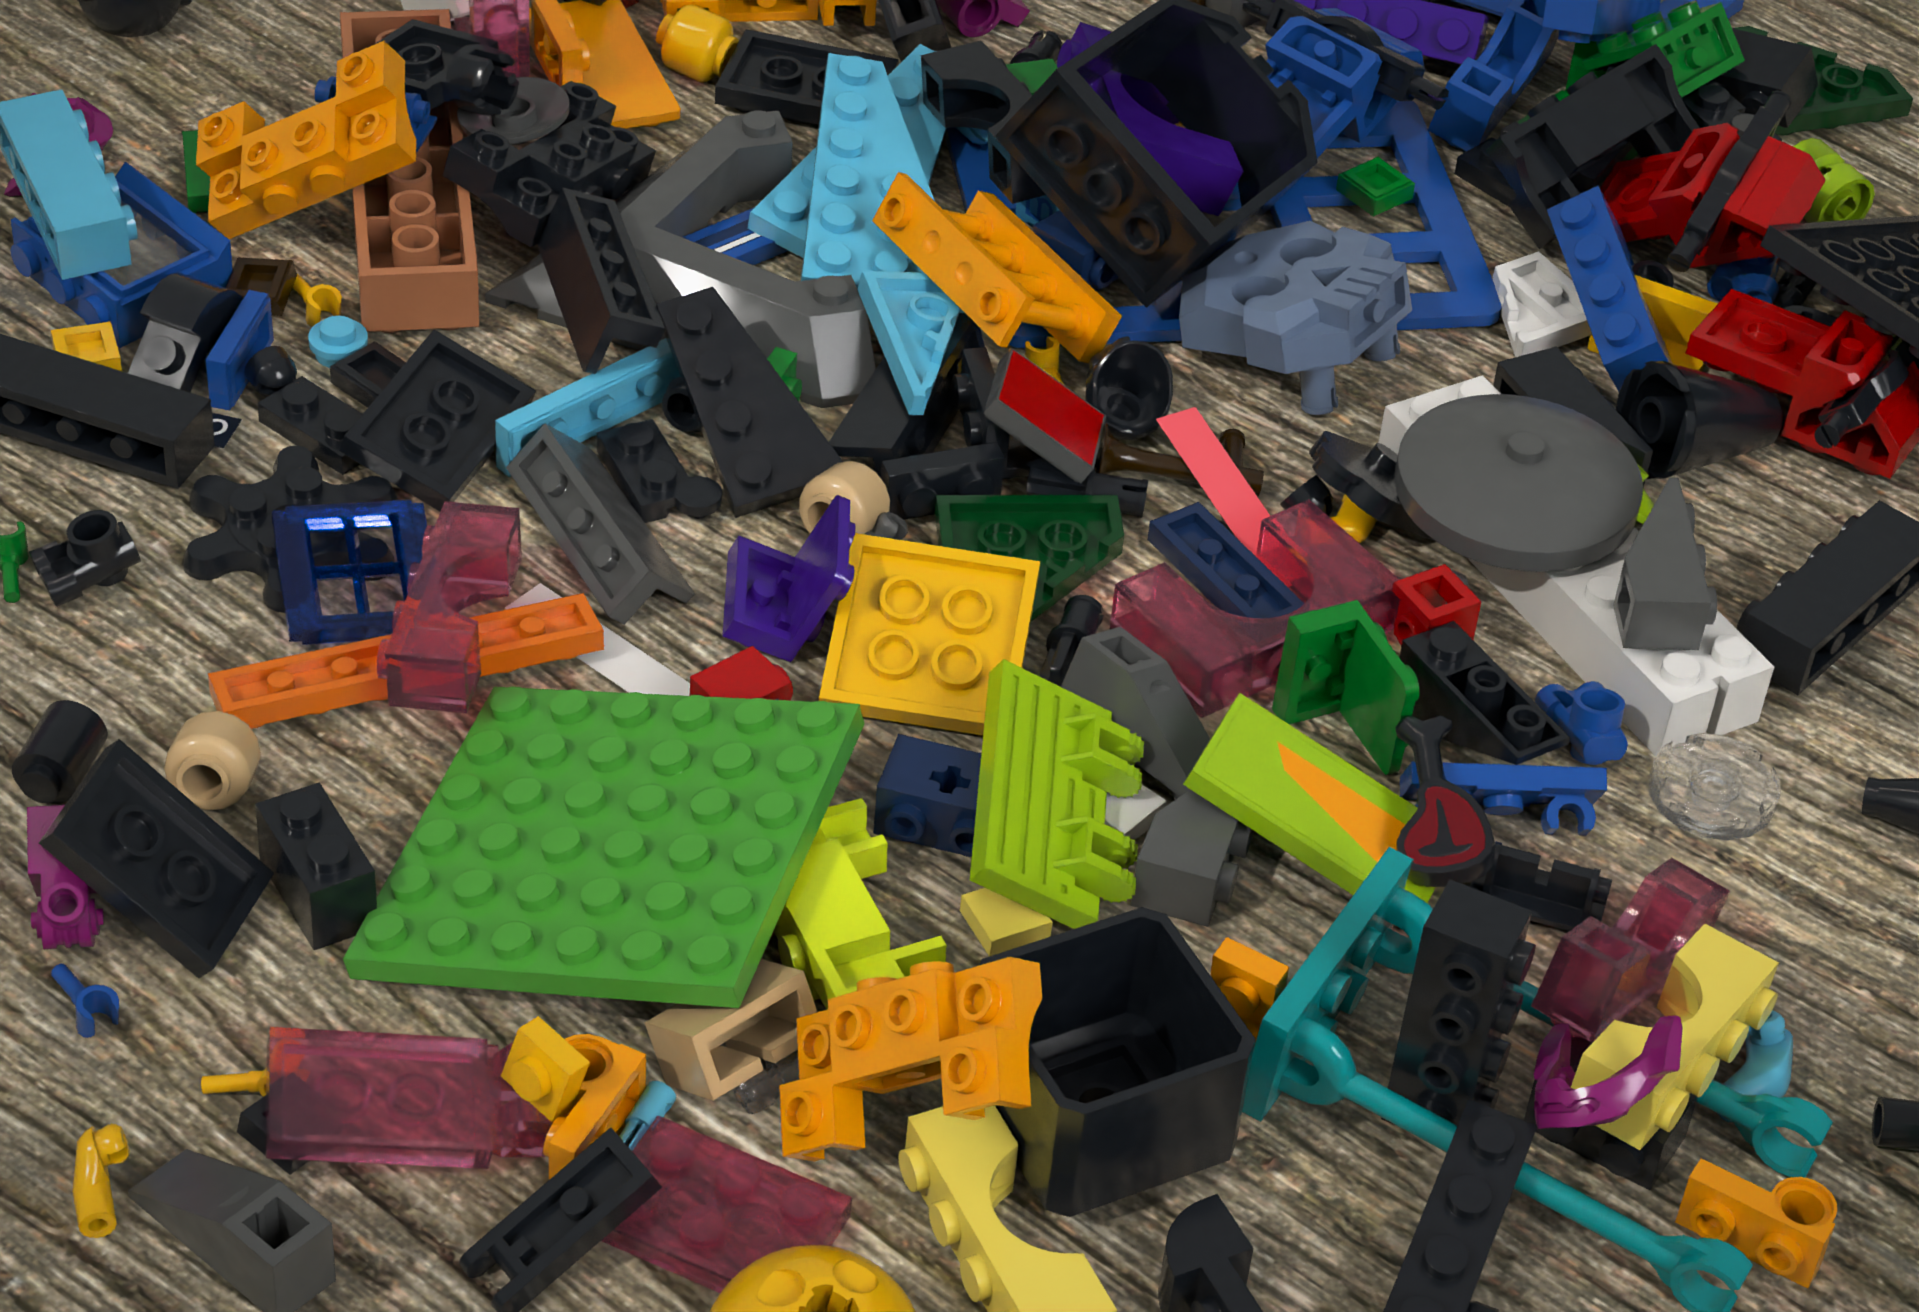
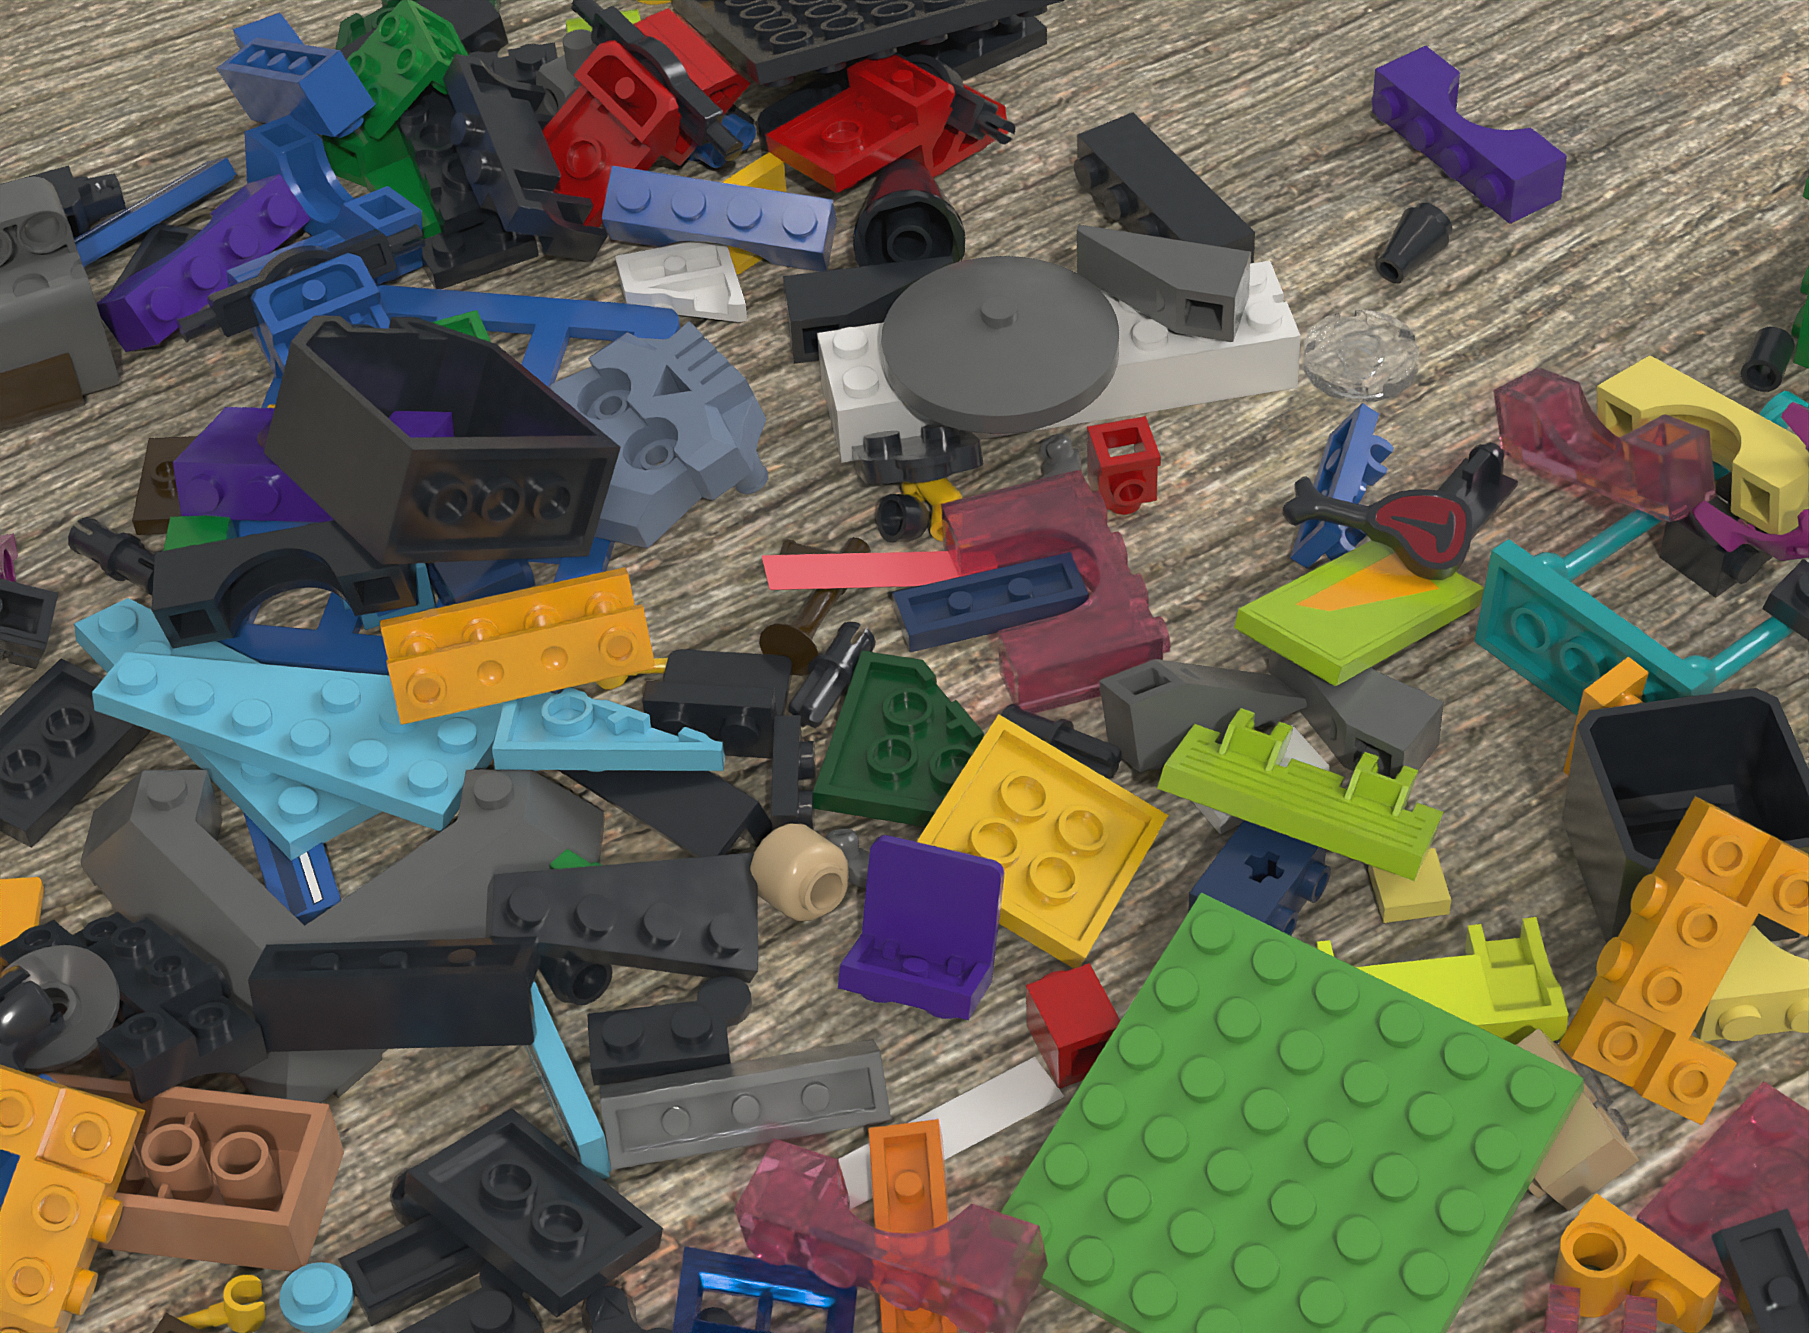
camera: 65 degrees left, 5 degrees up
(545, 1069) = (1622, 1277): yellow plate -> none
(1045, 415) = (760, 663): red tile -> none
(1130, 386) = (702, 601): black hair -> none
(1345, 665) = (1210, 533): green bracket -> none
(1462, 1001) = (1711, 550): black brick -> none
(1478, 696) = (1233, 473): black slope -> none
(1590, 719) = (1270, 407): blue plate -> none

